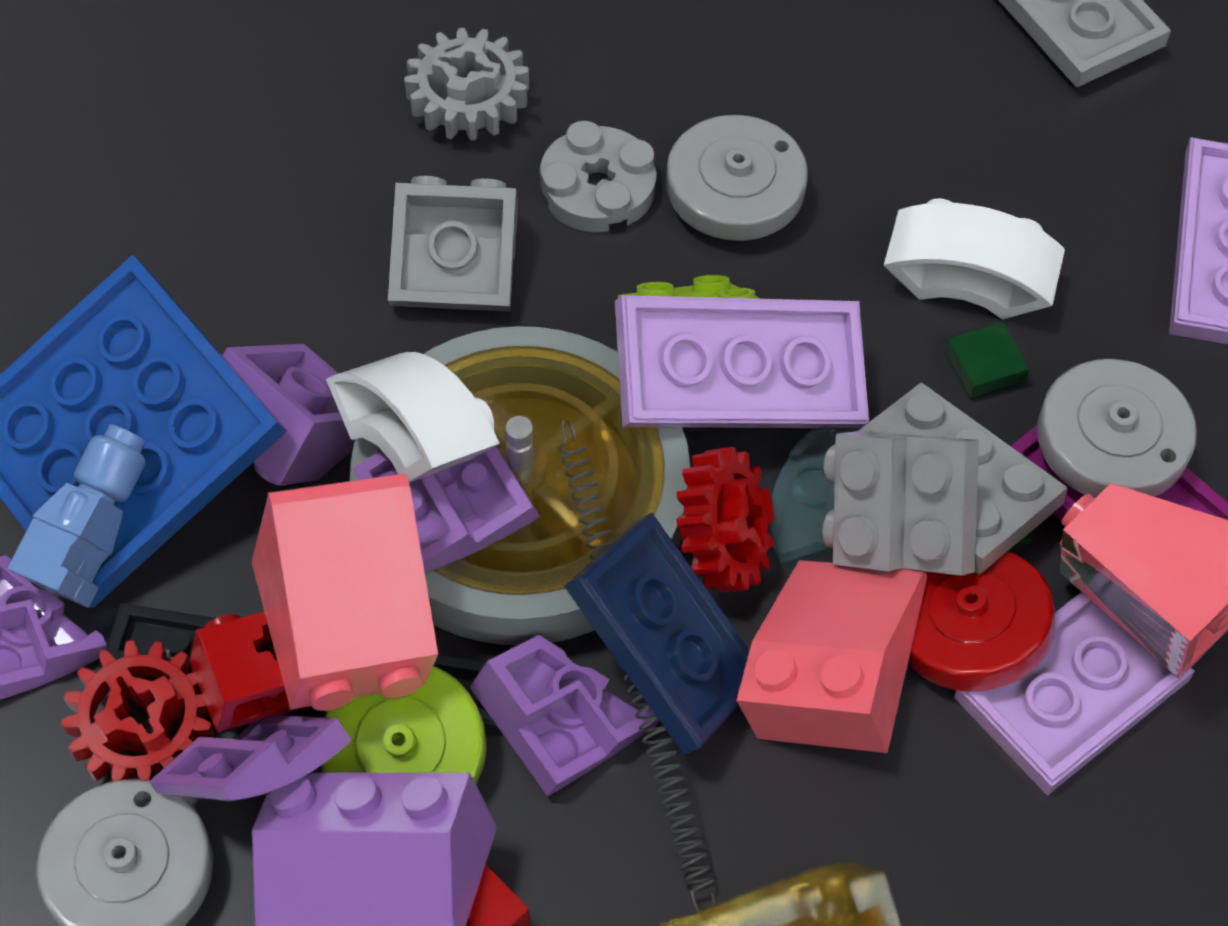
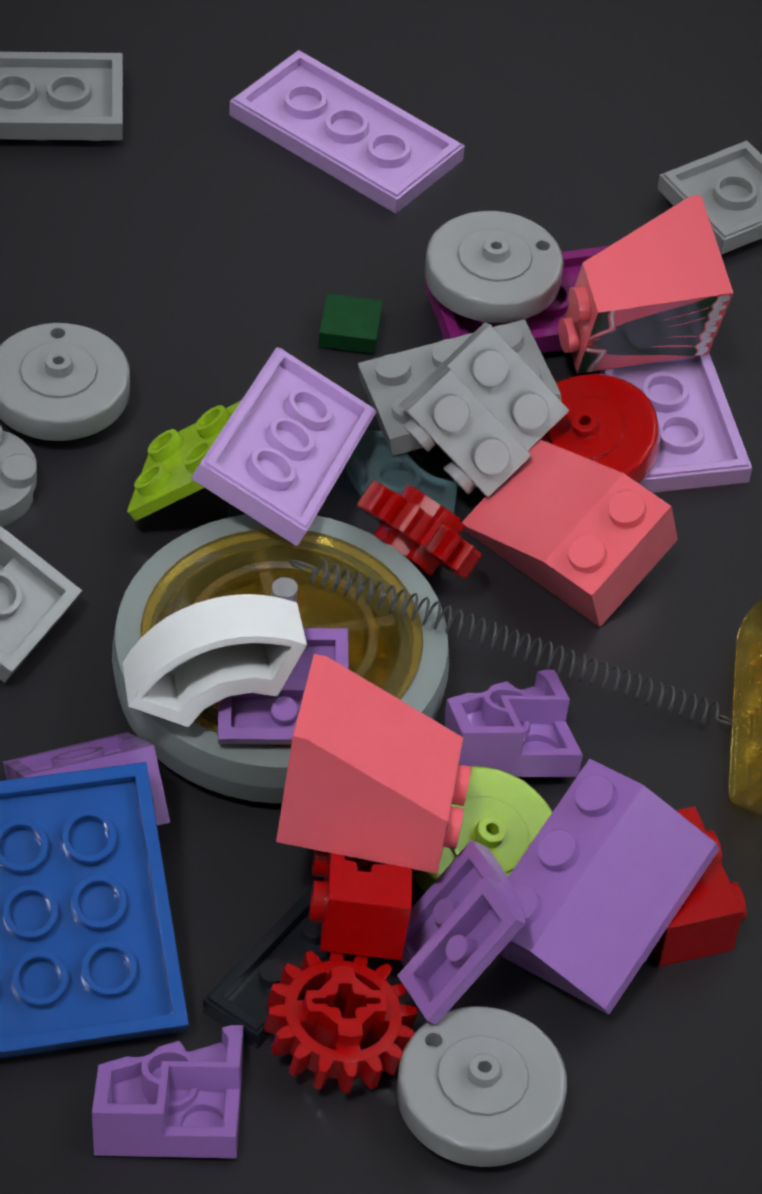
camera: 65 degrees left, 10 degrees down
(81, 523) = (129, 960): medium blue piece -> none
(664, 631) = (506, 606): dark blue tile -> none
(975, 257) = (260, 273): white brick -> none

